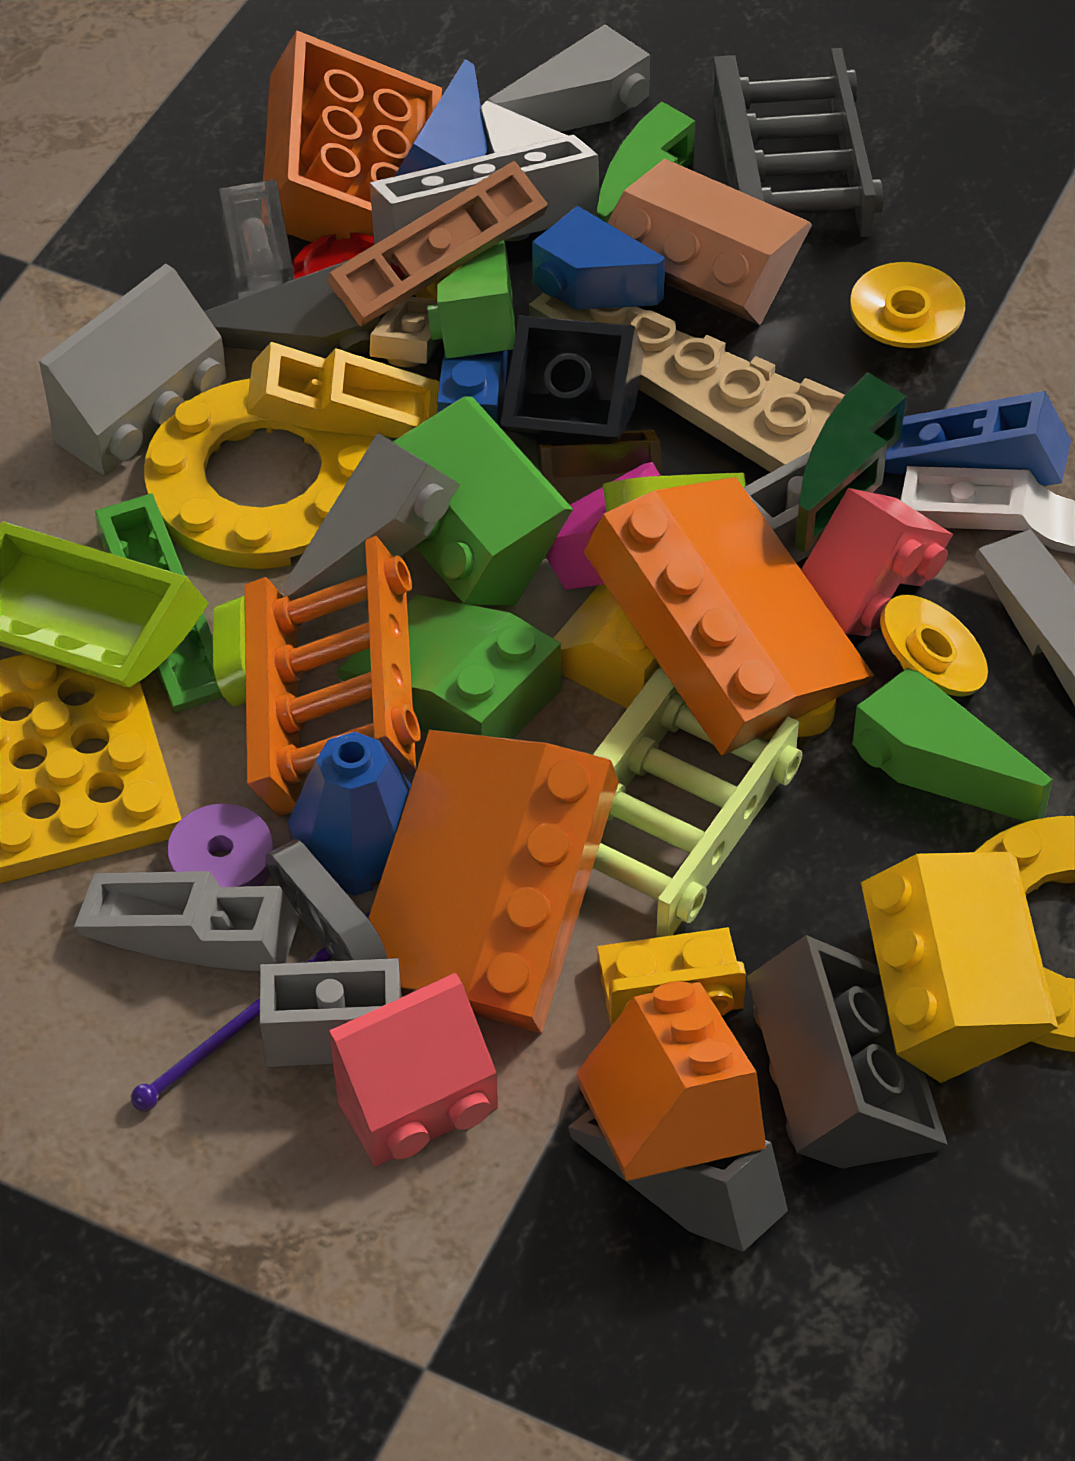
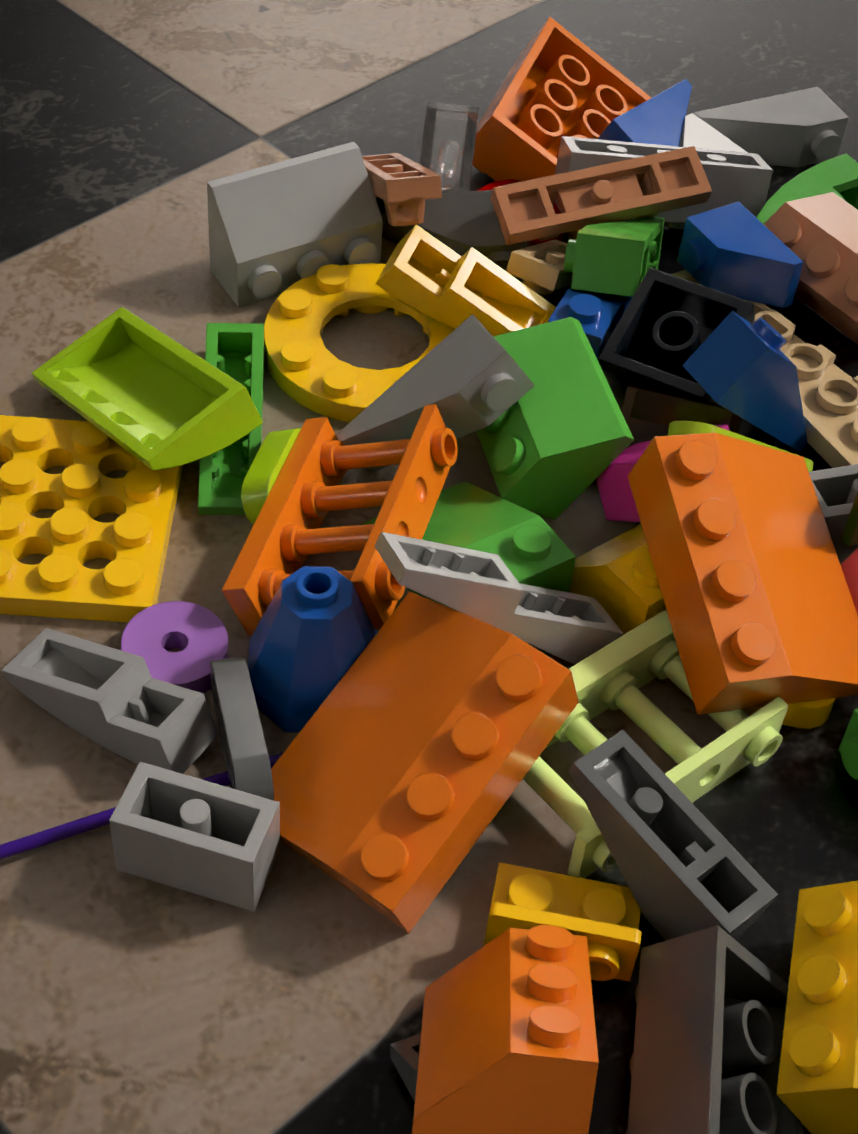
camera: 15 degrees right, 5 degrees down
(223, 288) = (402, 186): none -> nougat hinge
(413, 1071) = (248, 925): coral slope -> none
(494, 705) = (486, 589): none -> light grey slope
(659, 408) = (752, 377): none -> blue slope
(737, 884) = (665, 847): none -> dark grey slope

